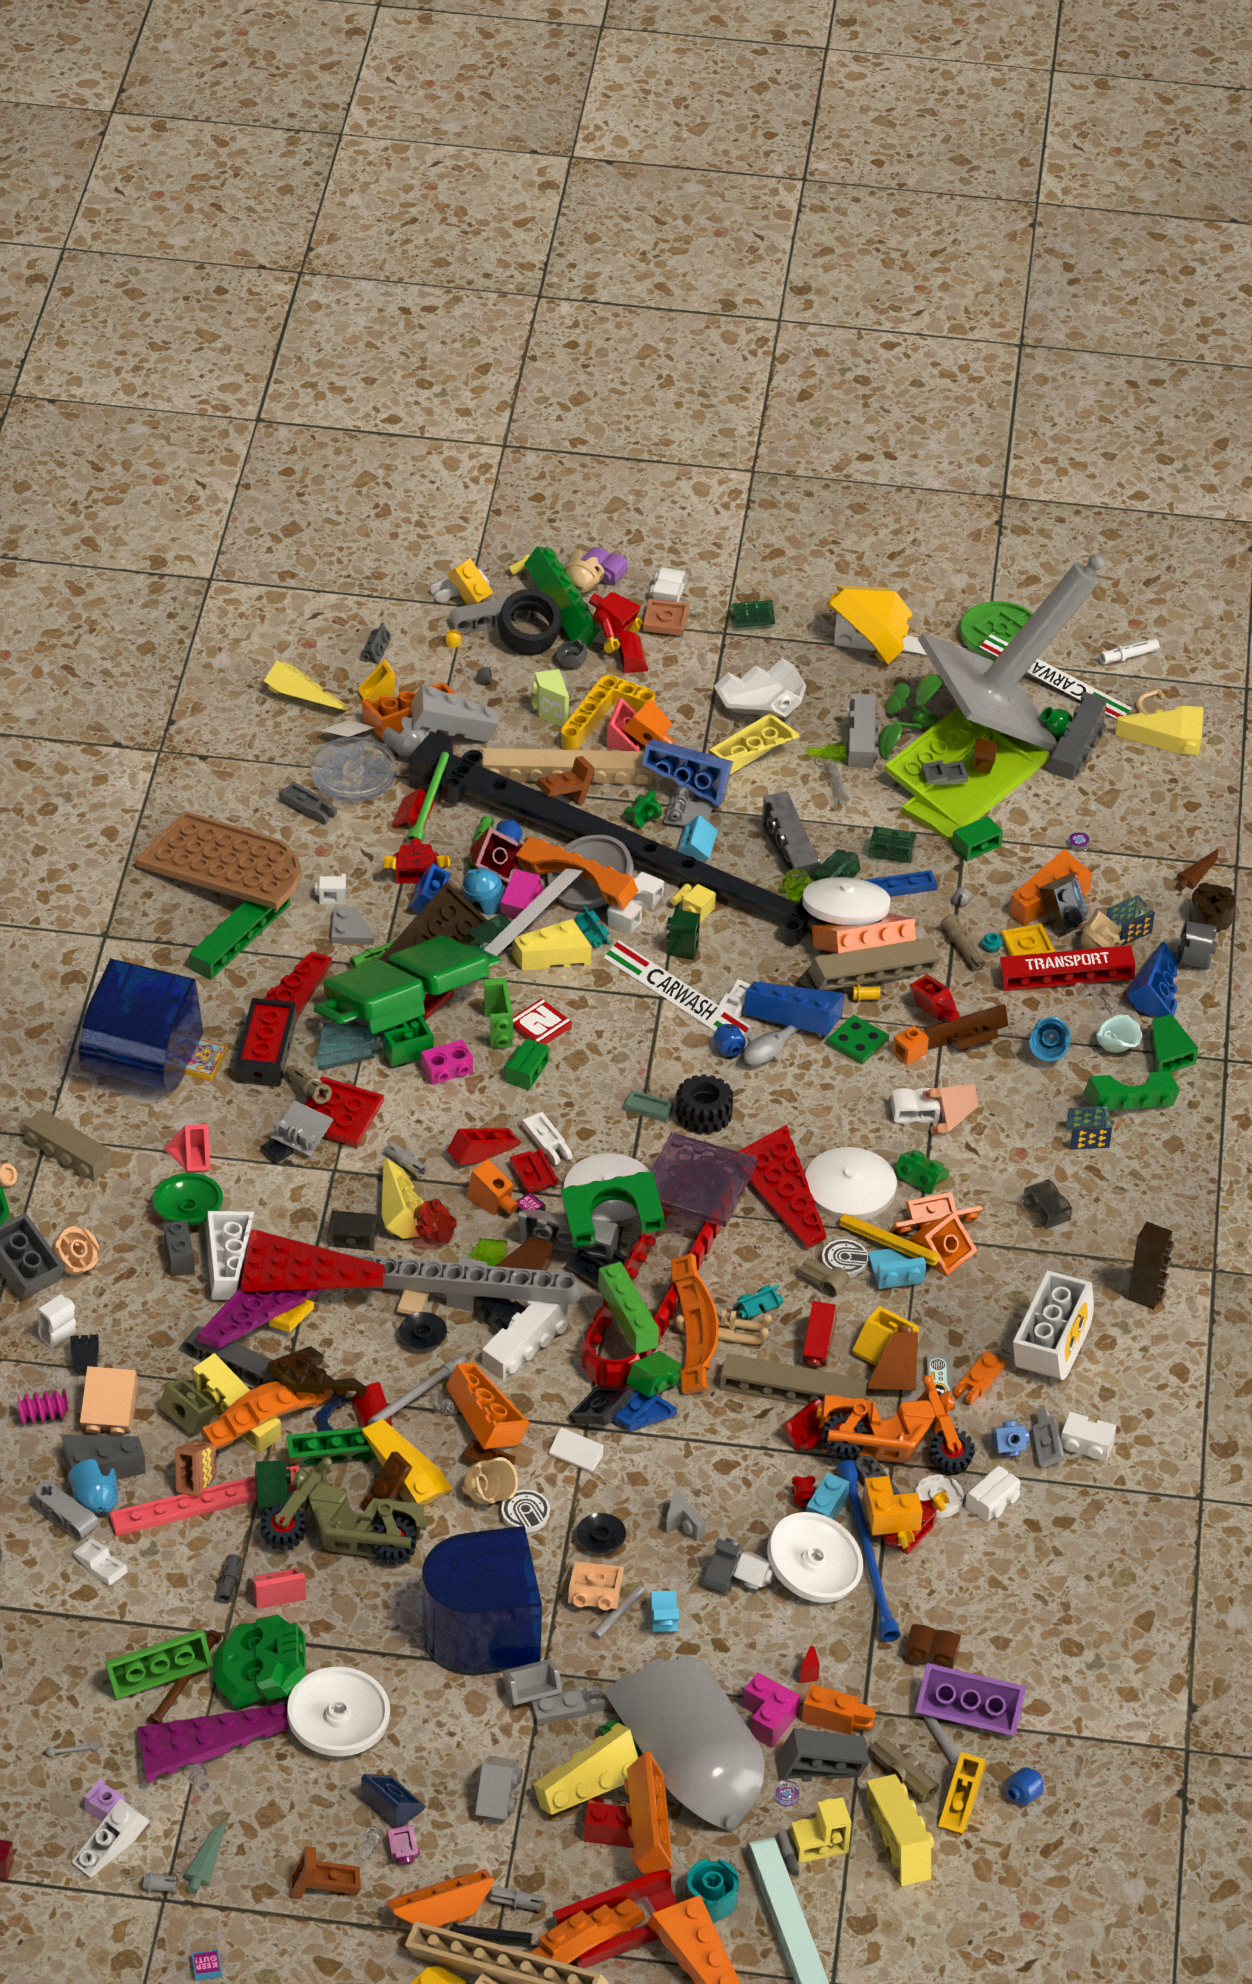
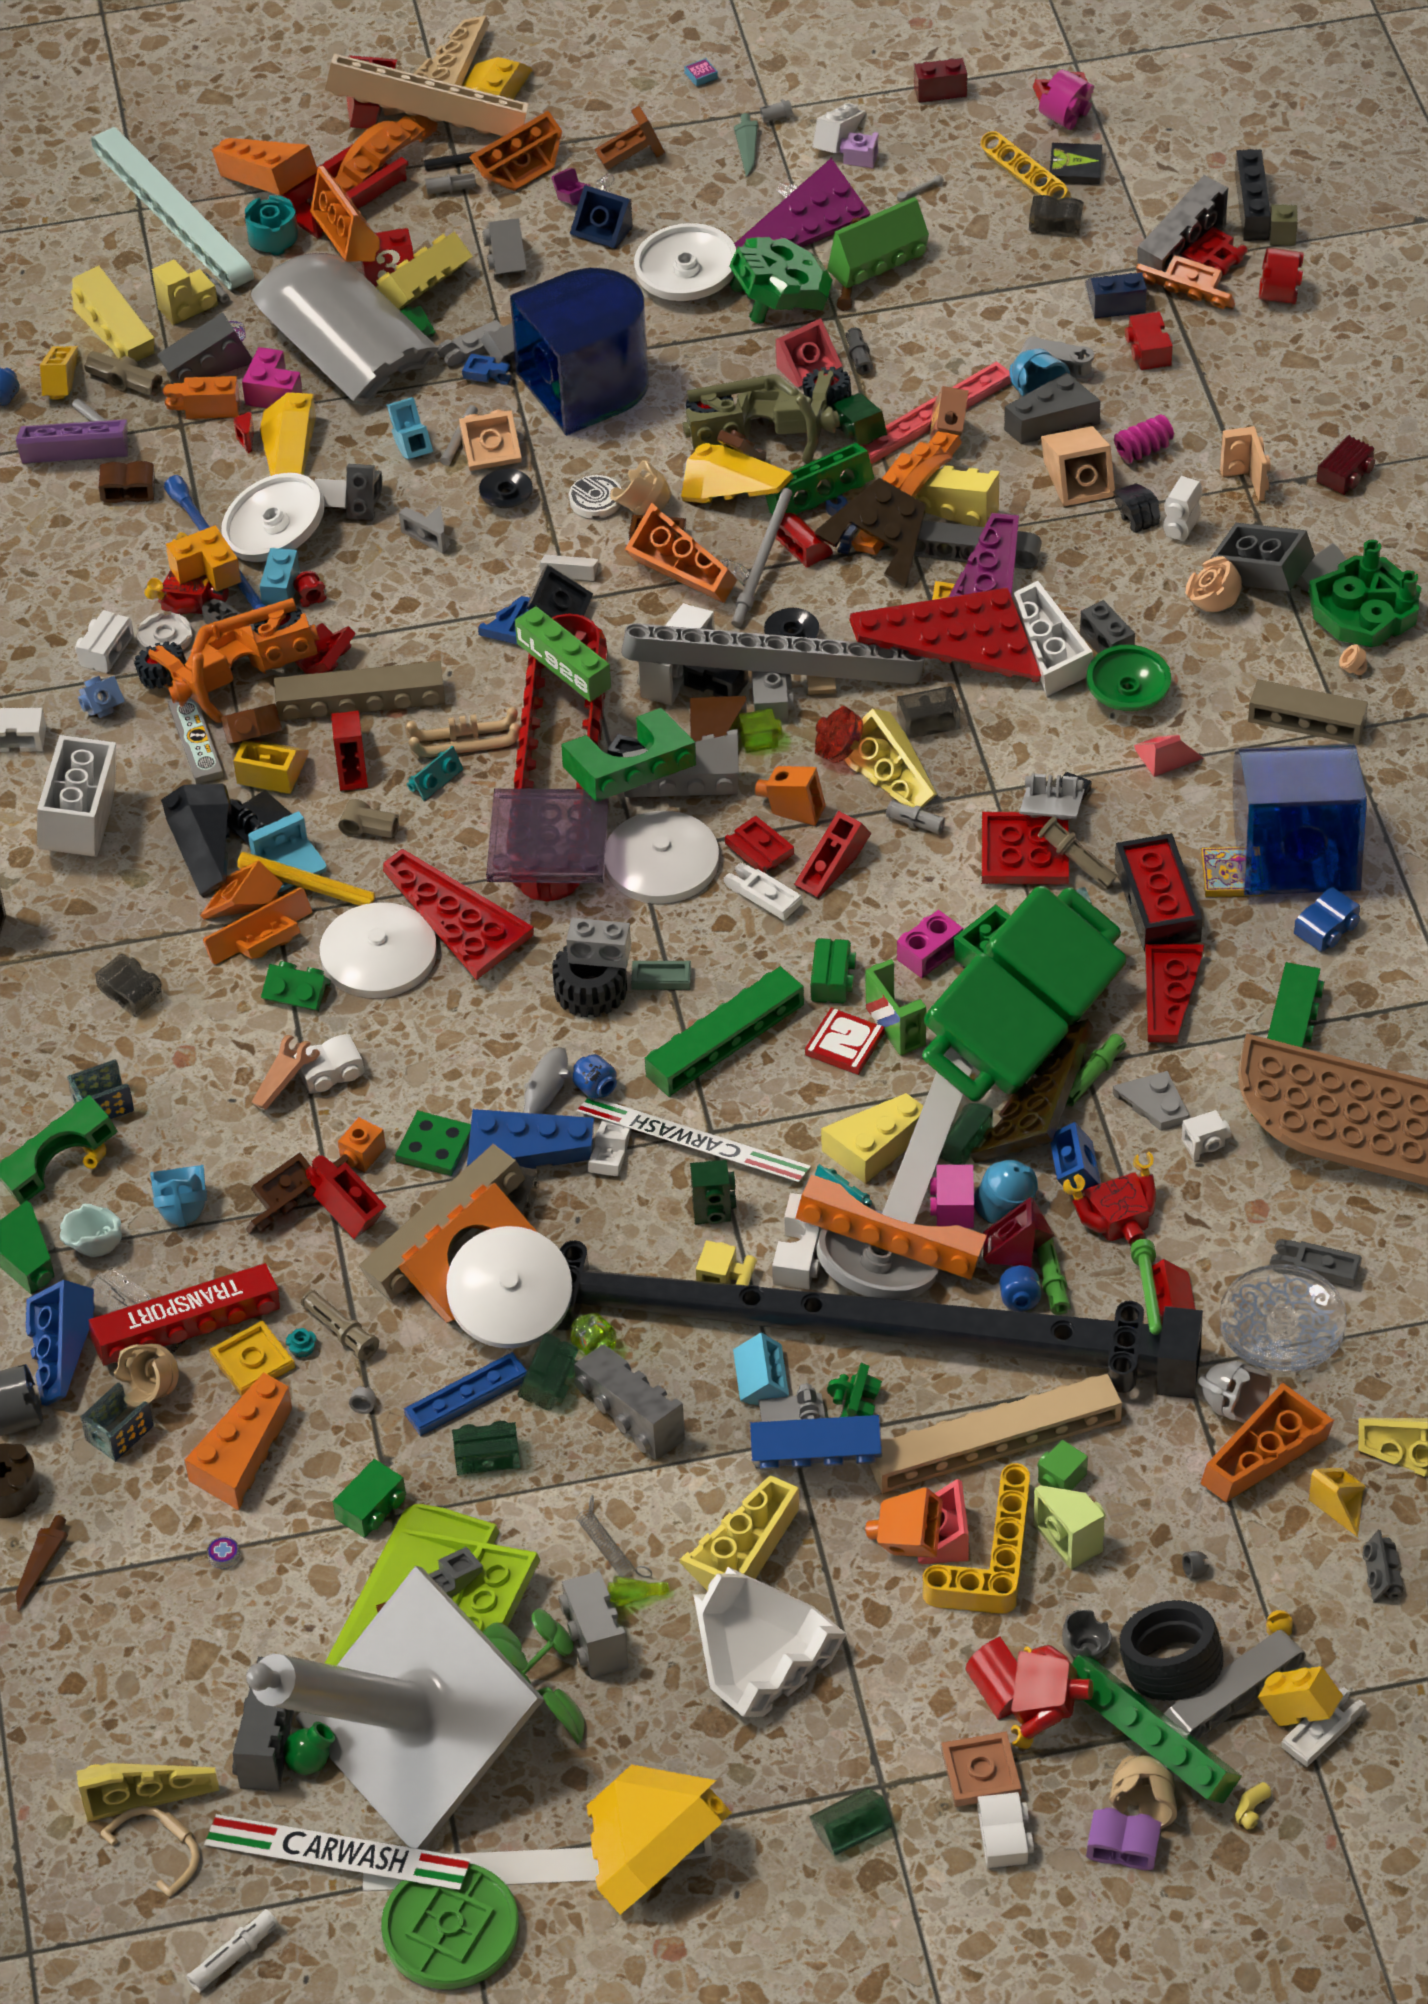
camera: 165 degrees right, 5 degrees up
(99, 1562) = (999, 337): white slope -> none
(187, 1406) = (1011, 471): olive brick -> none
(347, 728) = (1335, 1390): white sticker -> none
(452, 714) = (1187, 1420): light grey wedge -> none
(530, 1201) = (745, 807): tile -> none
(537, 735) = (1062, 1467): none -> bright green brick
(571, 1668) = (483, 367): none -> blue plate
(573, 783) = (975, 1370): dark orange bracket -> none
(622, 1046) = (724, 1031): none -> green brick
(654, 1374) = (506, 655): green brick -> none
(694, 1087) = (598, 943): none -> light grey brick
(700, 1323) = (477, 693): orange piece -> none
(774, 1648) = (288, 432): none -> yellow wedge
(847, 1255) = (353, 856): tile -> none
(910, 1304) = (255, 814): none -> black hinge
(959, 1300) = (199, 825): none -> black wedge
(980, 1377) = (155, 768): orange hinge -> none
(1047, 1438) = (58, 712): light grey hinge -> none
(1064, 902) = (209, 1400): black slope -> none

